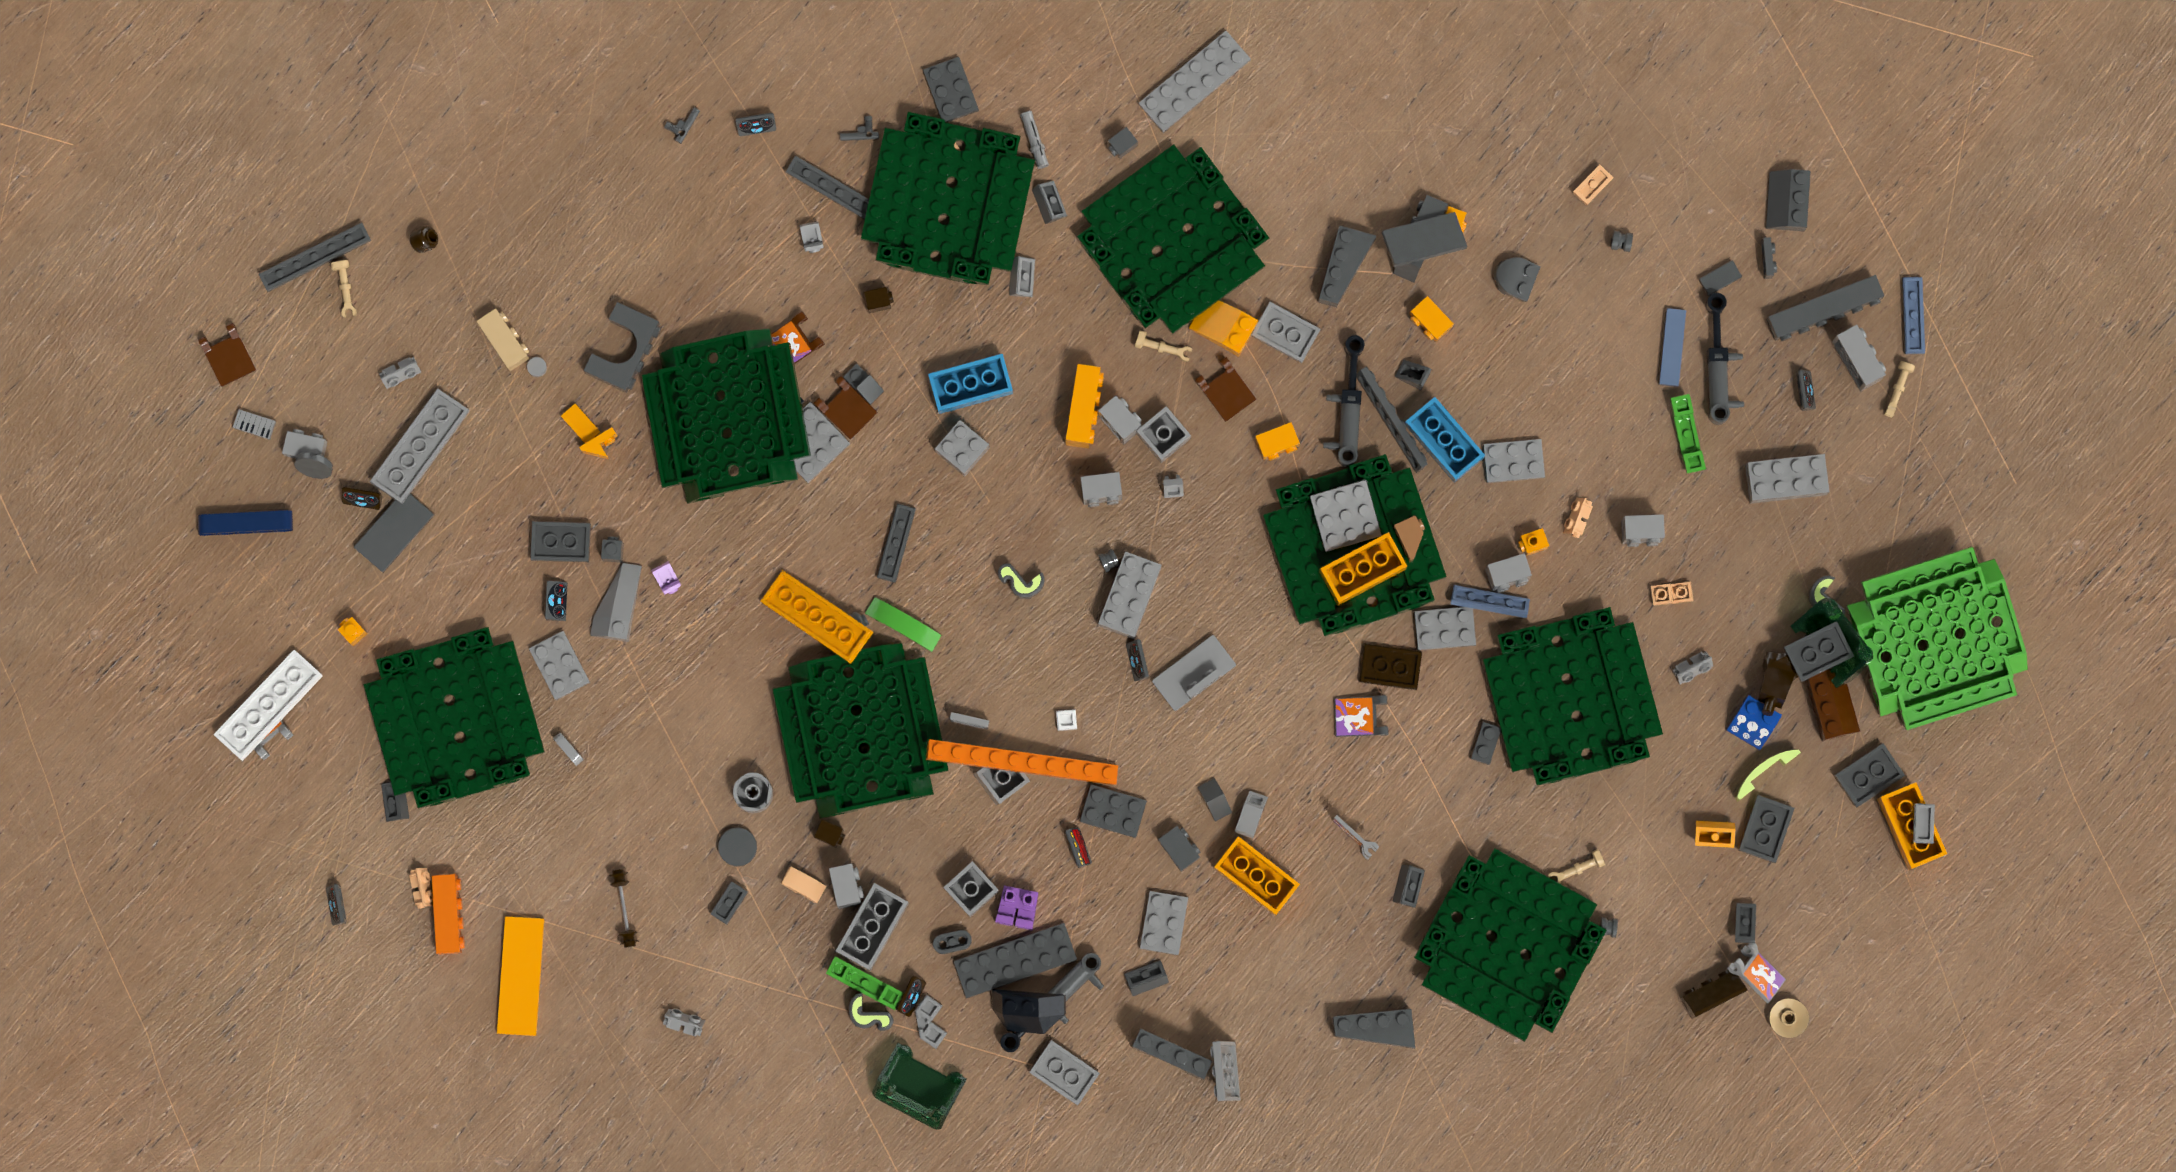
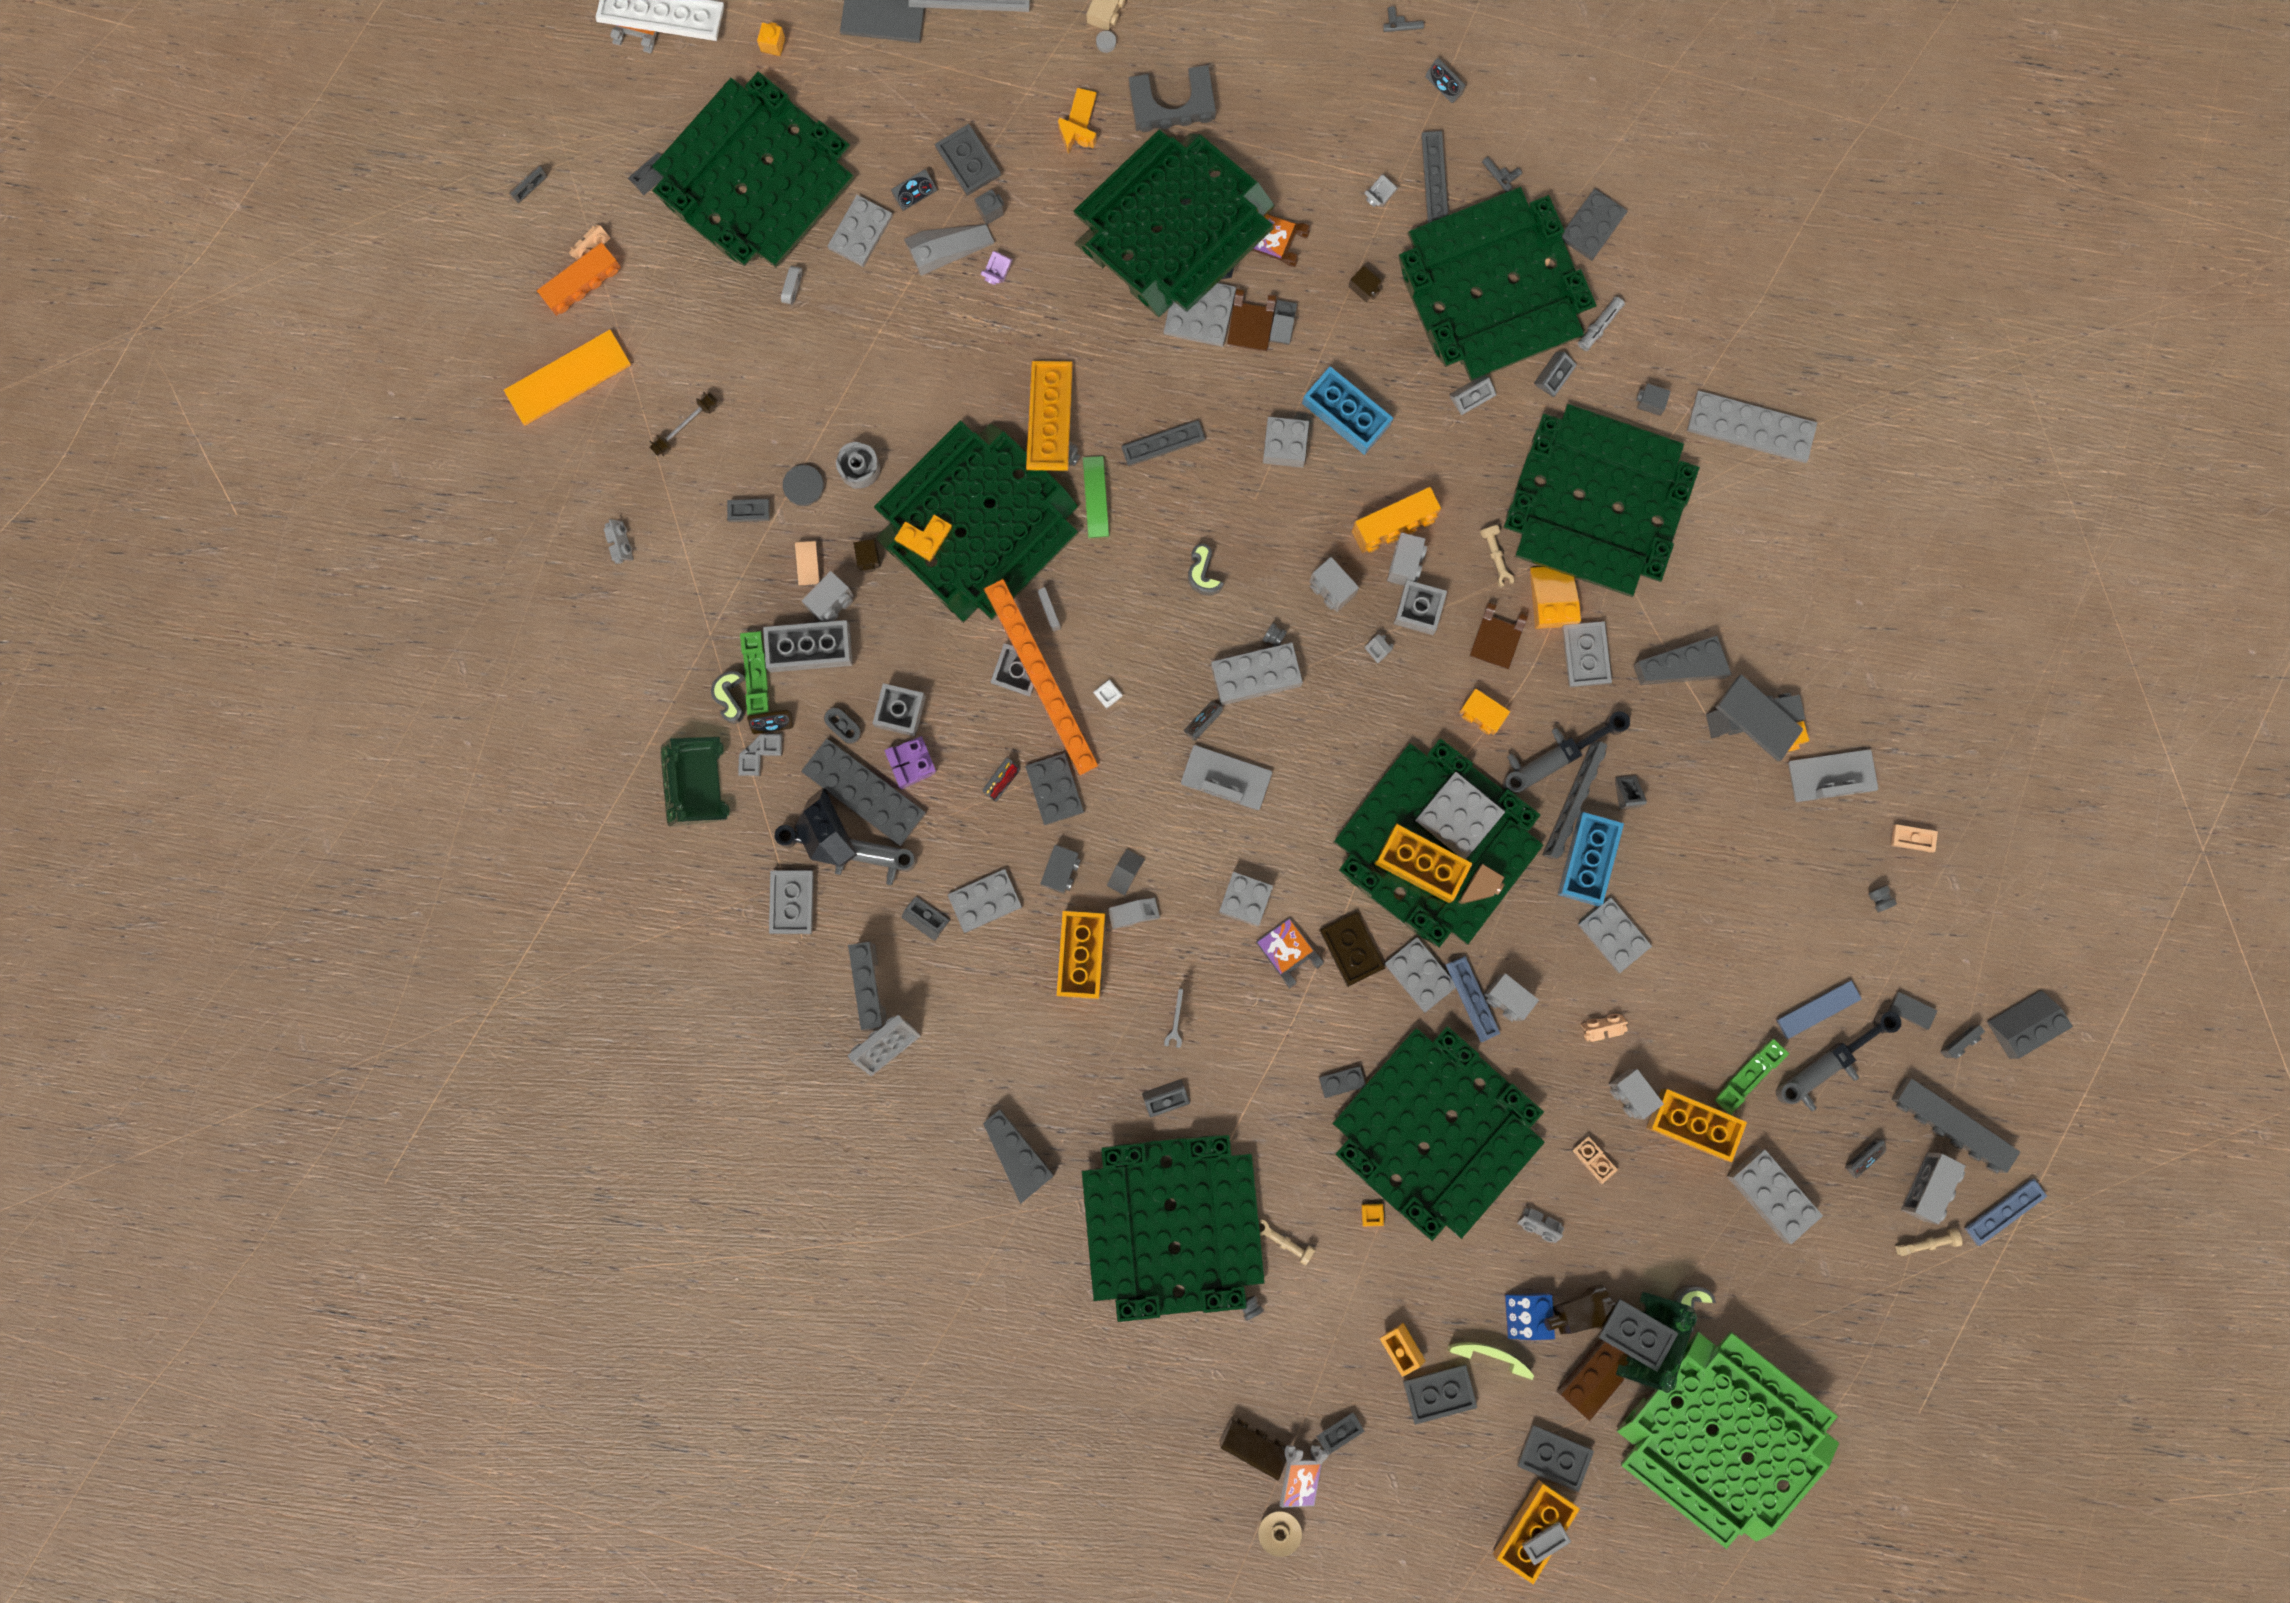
camera: 55 degrees right, 0 degrees up
(855, 780) = (925, 542): none -> light orange plate
(1298, 722) = (1245, 899): none -> light grey brick
(1431, 319) = (1689, 774): light orange brick -> none
(1504, 211) = (1833, 775): none -> light grey bracket
(1516, 277) = (1781, 826): dark grey slope -> none
(1533, 542) = (1554, 1002): light orange brick -> none
(1601, 788) = (1372, 1214): none -> light orange tile
(1696, 500) = (1697, 1125): none -> light orange brick

